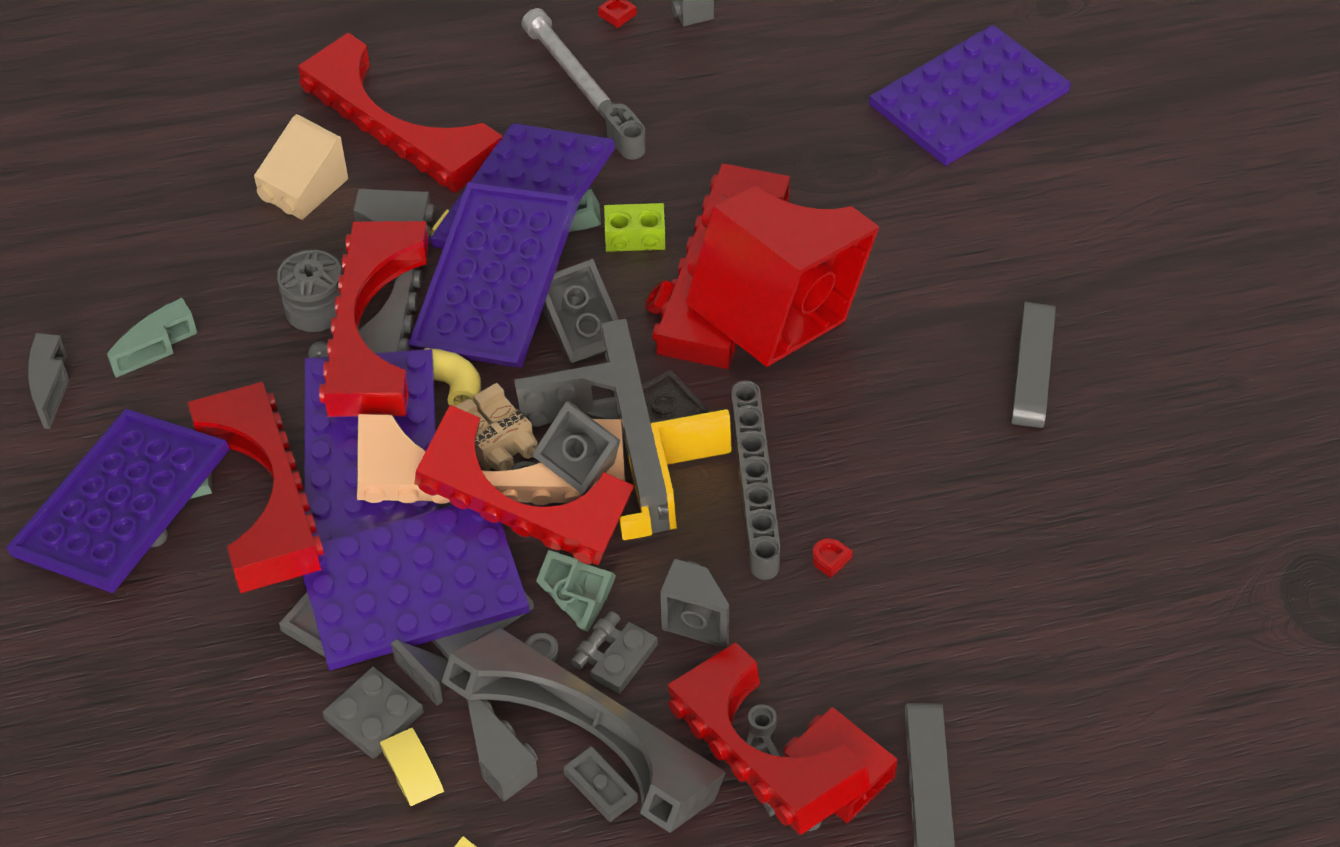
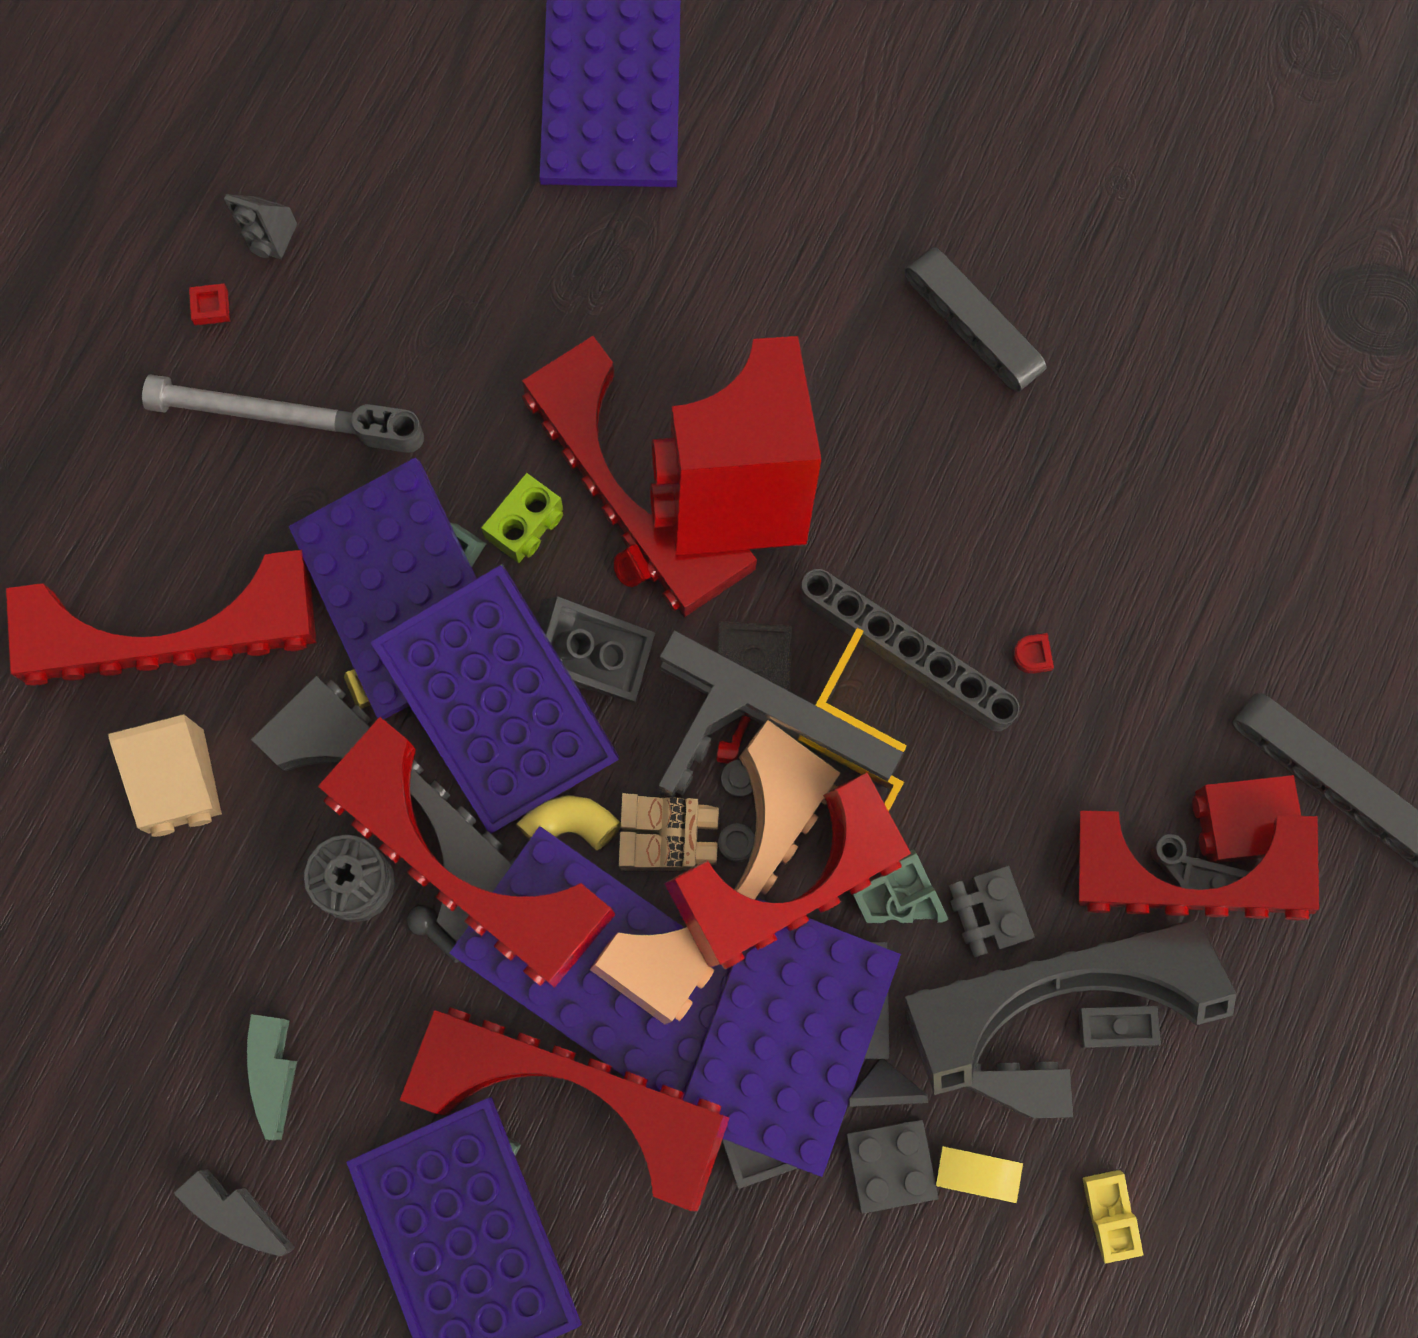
camera: 55 degrees left, 25 degrees up
(544, 644) = (939, 970): dark grey tile -> none
(577, 448) = (785, 792): dark grey slope -> none
(694, 604) = (1013, 810): dark grey slope -> none

